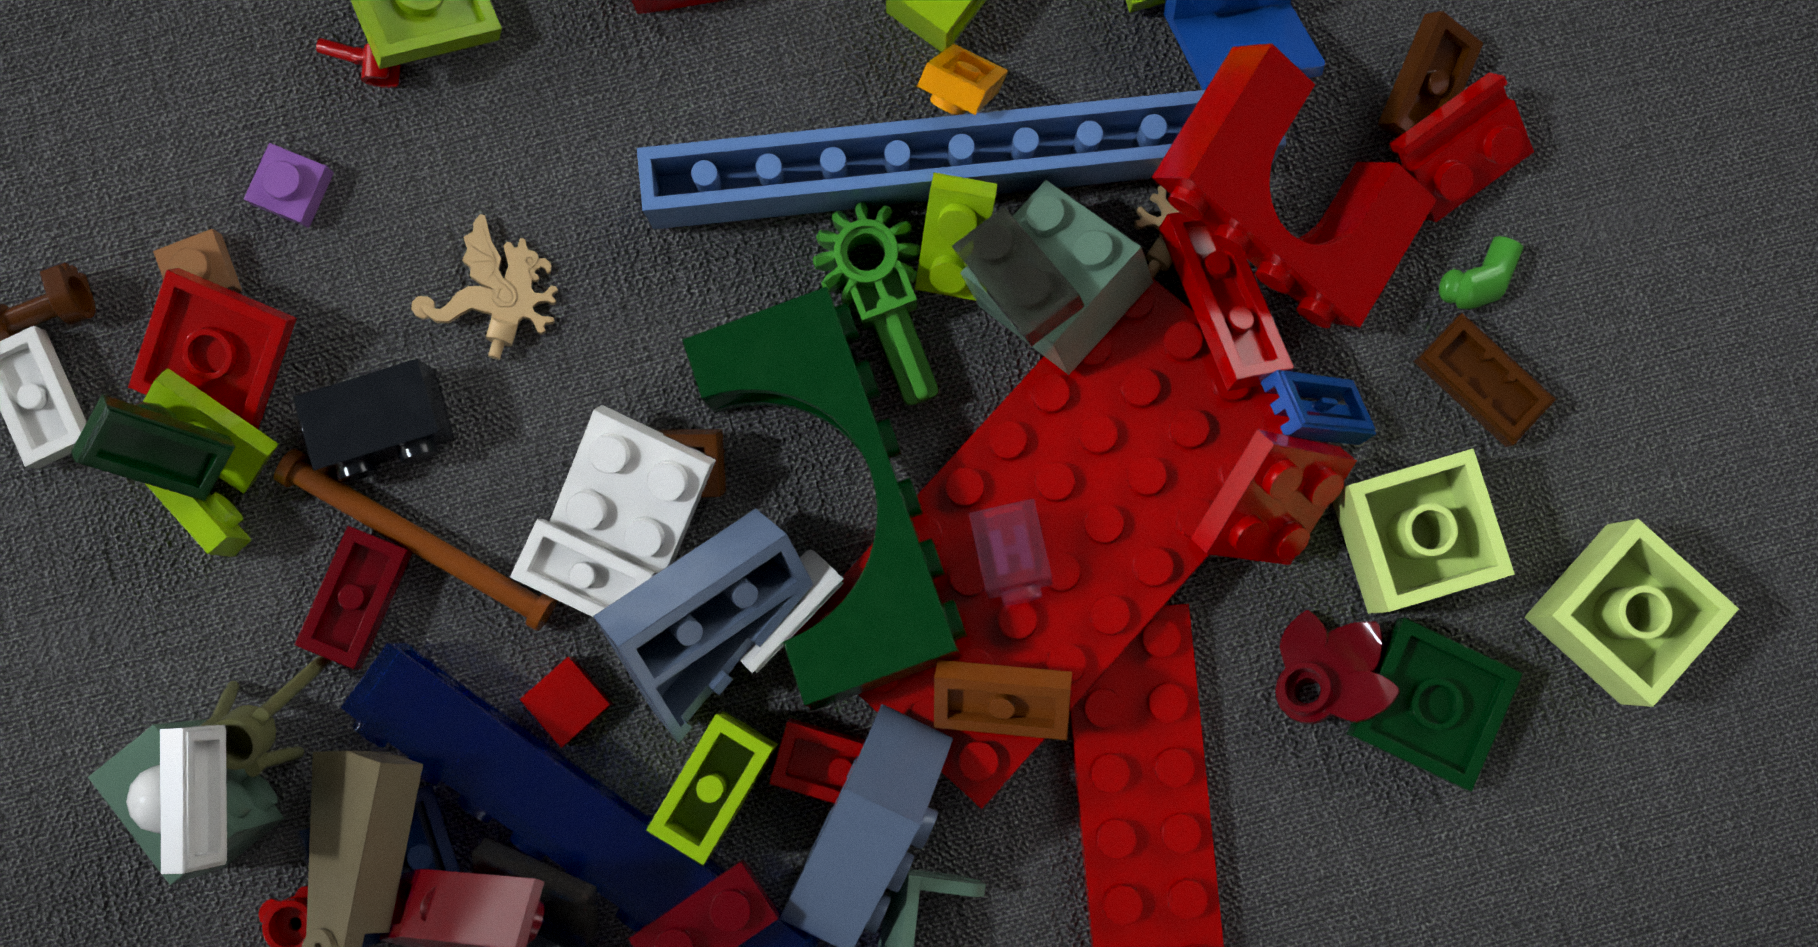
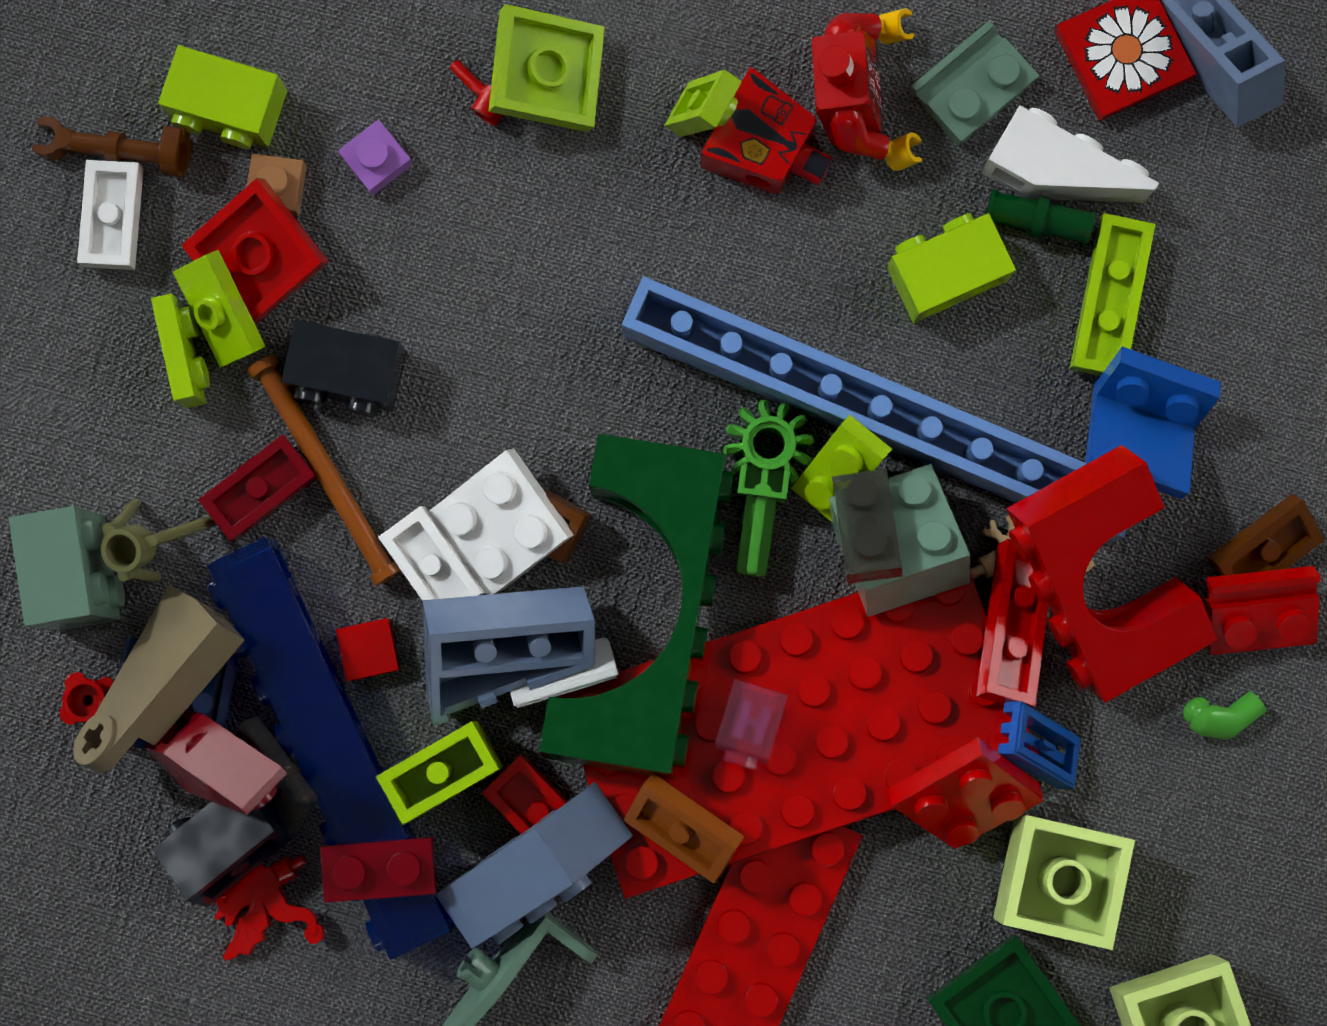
camera: 35 degrees right, 0 degrees up
(87, 209) = (222, 98): none -> lime brick
(152, 447) = (179, 305): dark green tile -> none
(185, 798) = (70, 572): white tile -> none
(504, 298) = (486, 328): tan piece -> none
(961, 80) = (911, 354): light orange plate -> none
(1341, 665) = (949, 943): dark red plate -> none
(1484, 380) = (1179, 794): reddish brown plate -> none

